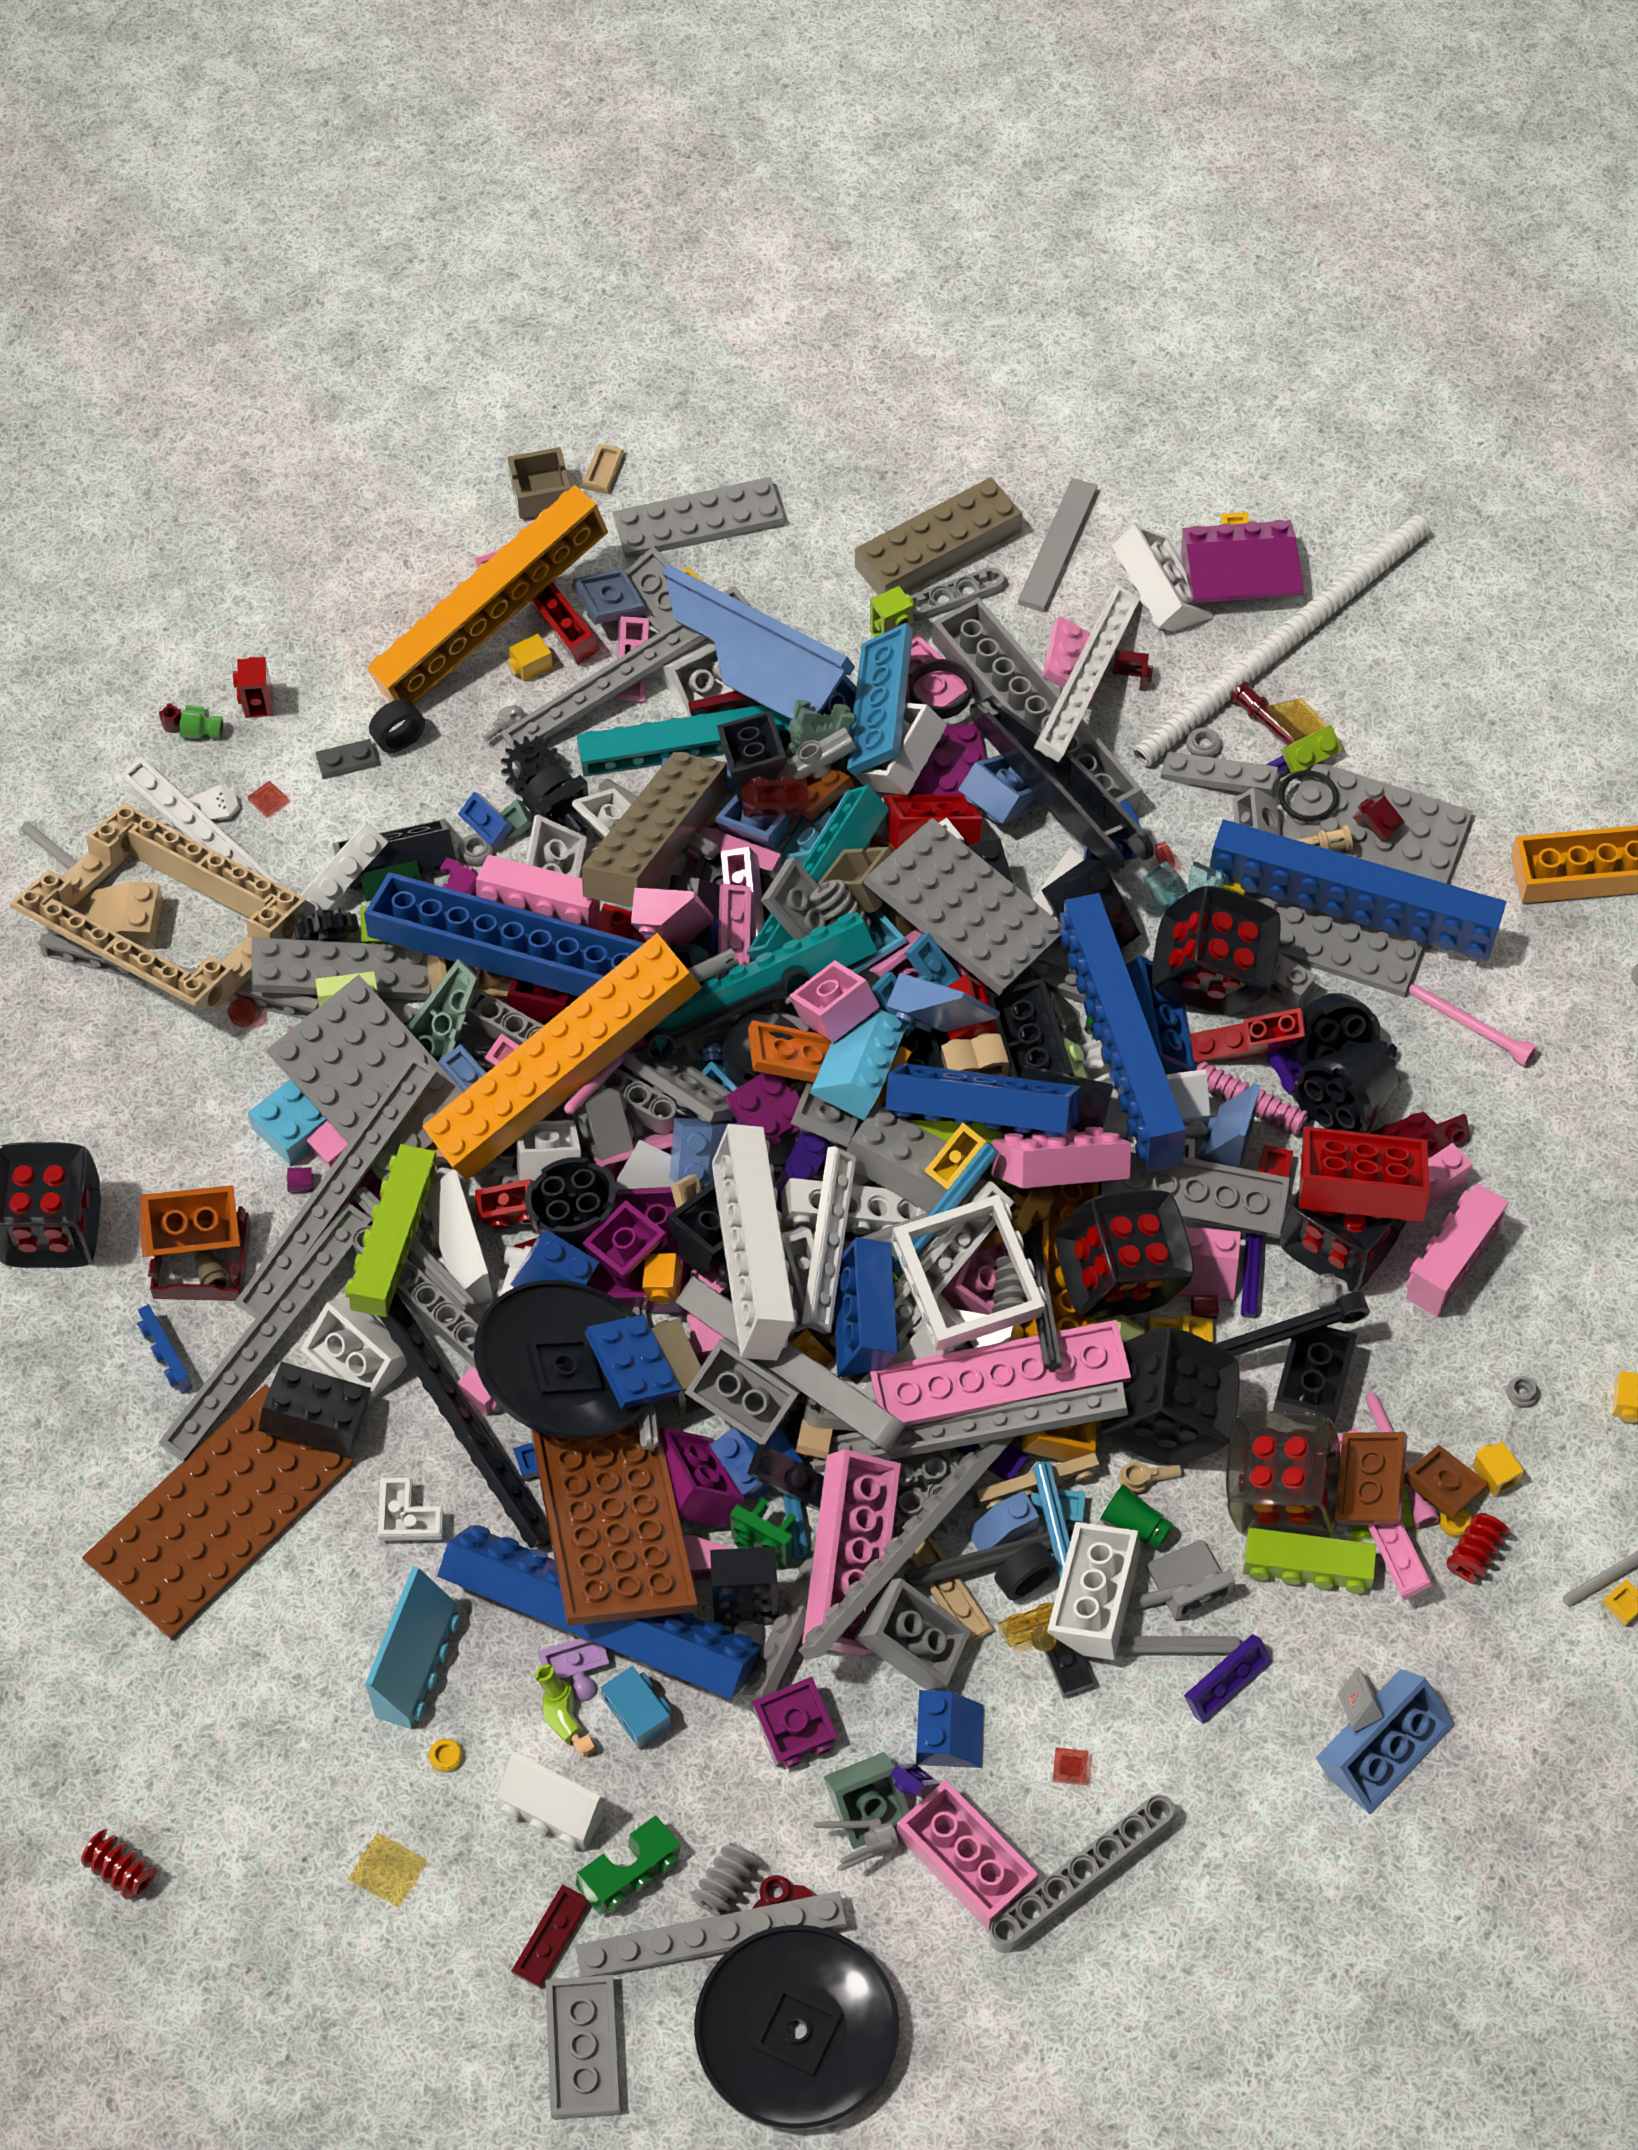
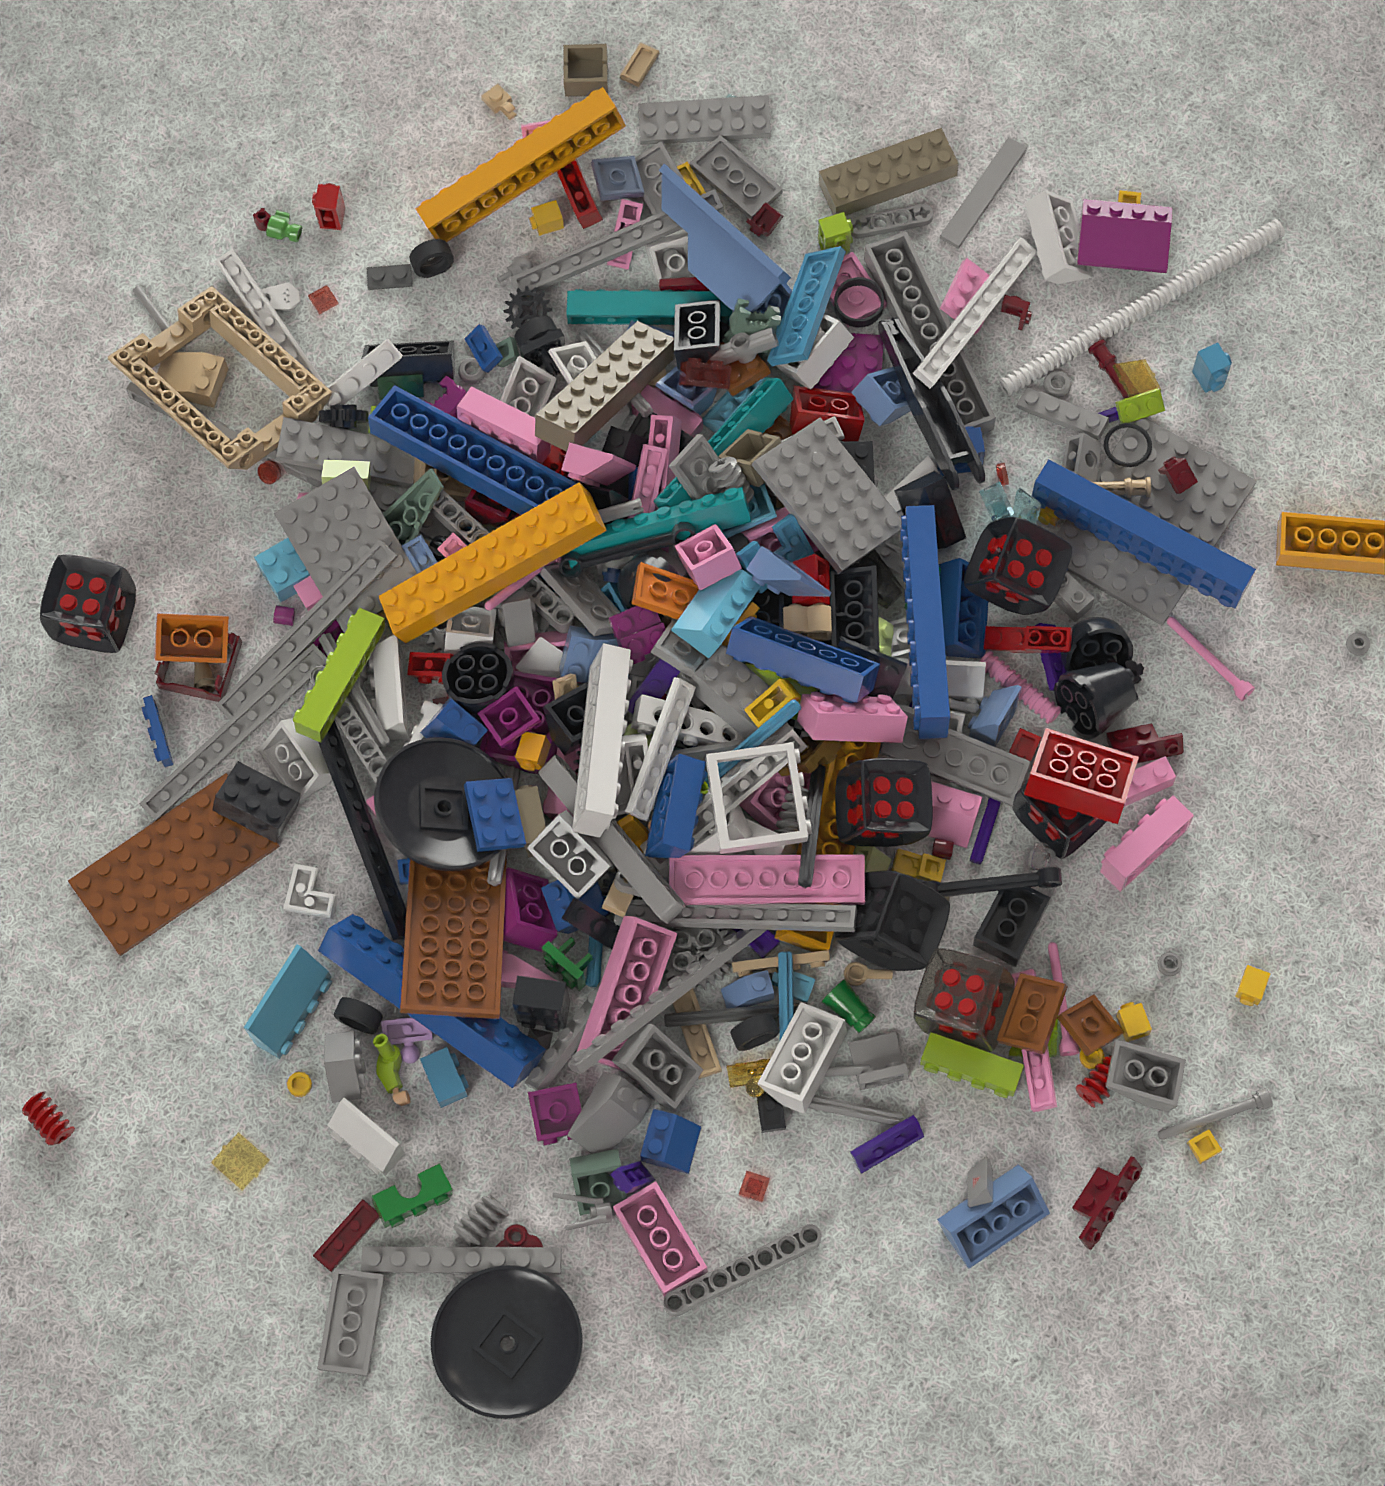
camera: 15 degrees right, 10 degrees up
(439, 535) = (499, 99): none -> tan plate
(504, 1714) = (344, 1066): none -> light grey brick
(506, 1649) = (358, 1015): none -> black tyre
(756, 574) = (735, 177): none -> light grey plate
(802, 615) = (765, 220): none -> dark red bracket
(864, 1707) = (609, 1114): none -> light grey slope
(1386, 690) = (1212, 368): none -> dark azure brick
(1516, 1691) = (1102, 1199): none -> dark red bracket
(1533, 1527) = (1145, 1075): none -> light grey slope

